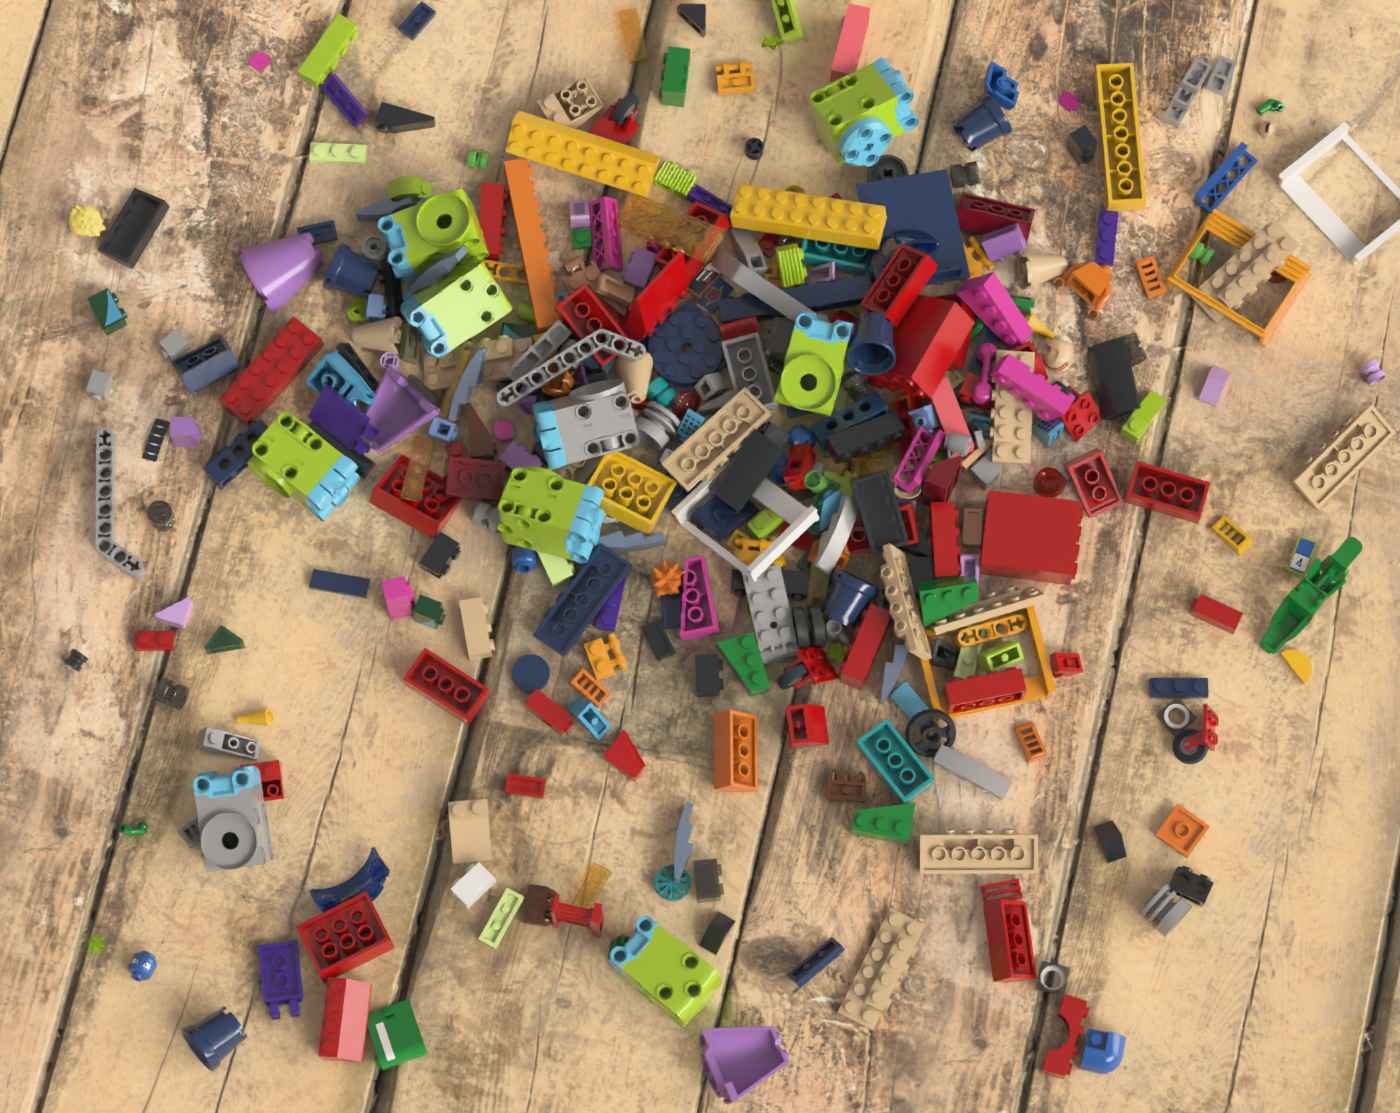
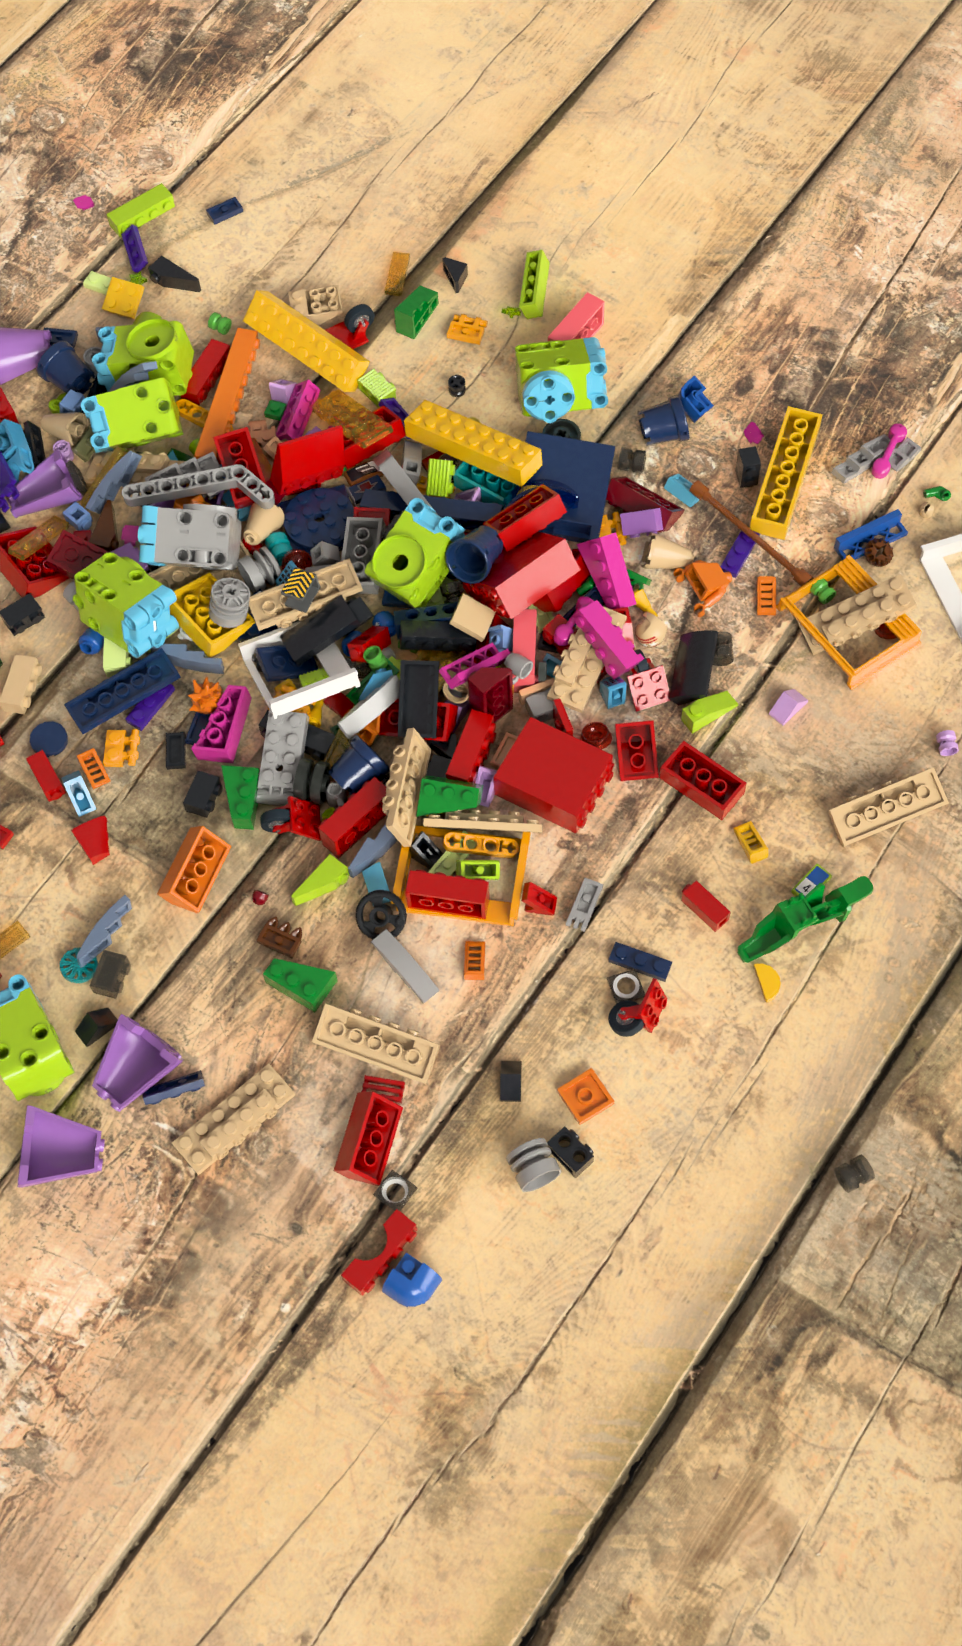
camera: 25 degrees right, 10 degrees down
(363, 135) = (137, 278): none -> clear neon green piece
(363, 164) = (123, 298): none -> yellow plate
(651, 476) = (229, 602): none -> light grey wheel
(716, 439) = (300, 589): none -> piece
(773, 955) = (133, 1063): none -> medium lavender cone
(806, 726) = (269, 868): red slope -> none
(808, 755) = (259, 897): none -> dark red hinge
(861, 717) = (324, 879): none -> lime slope
(893, 409) = (472, 617): none -> tan tile
(894, 762) = (335, 930): teal brick -> none
(1015, 480) = (561, 718): none -> red plate
(1025, 187) = (680, 487): none -> medium azure slope
(1047, 188) = (702, 492): none -> dark orange hose
(1107, 651) = (585, 904): none -> light grey hinge
(1208, 96) = (882, 465): none -> dark pink piece
(1231, 194) = (871, 550): none -> reddish brown gear

